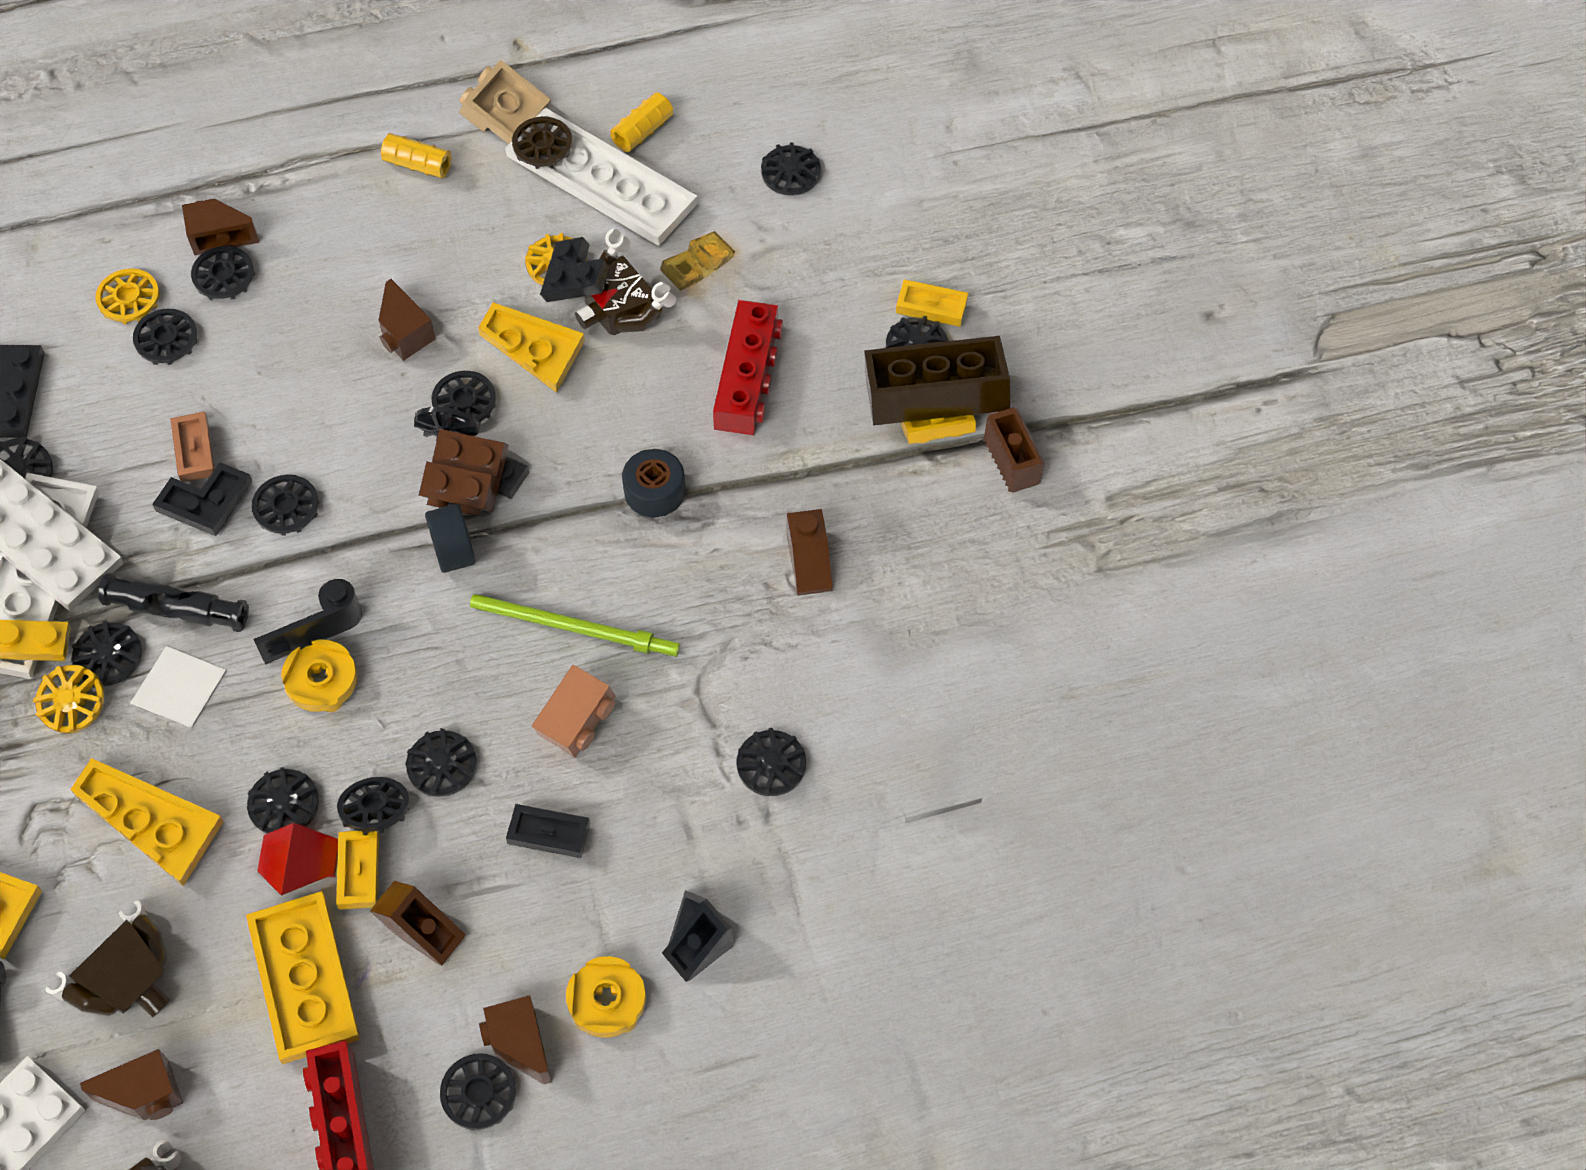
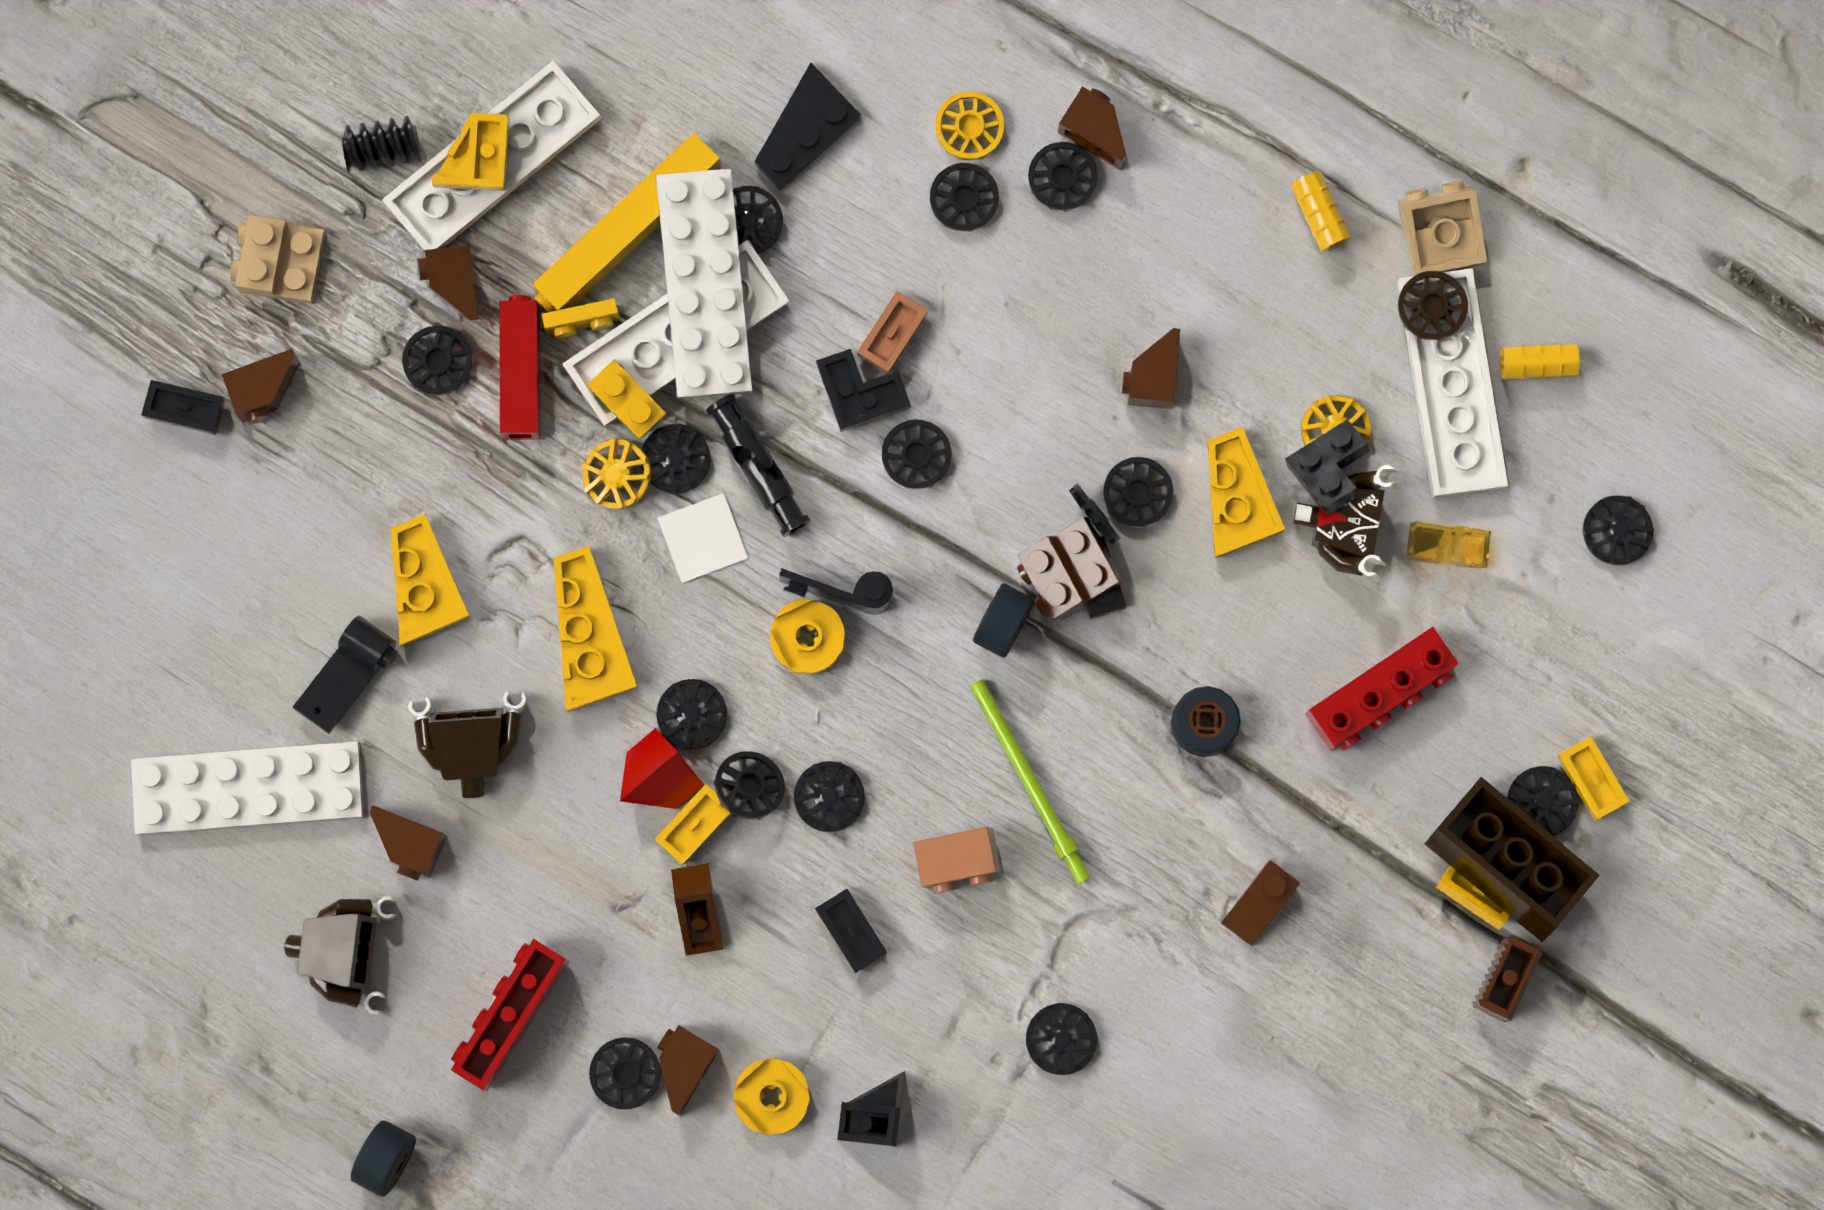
camera: 45 degrees right, 20 degrees up
(302, 976) = (585, 869): yellow plate -> none

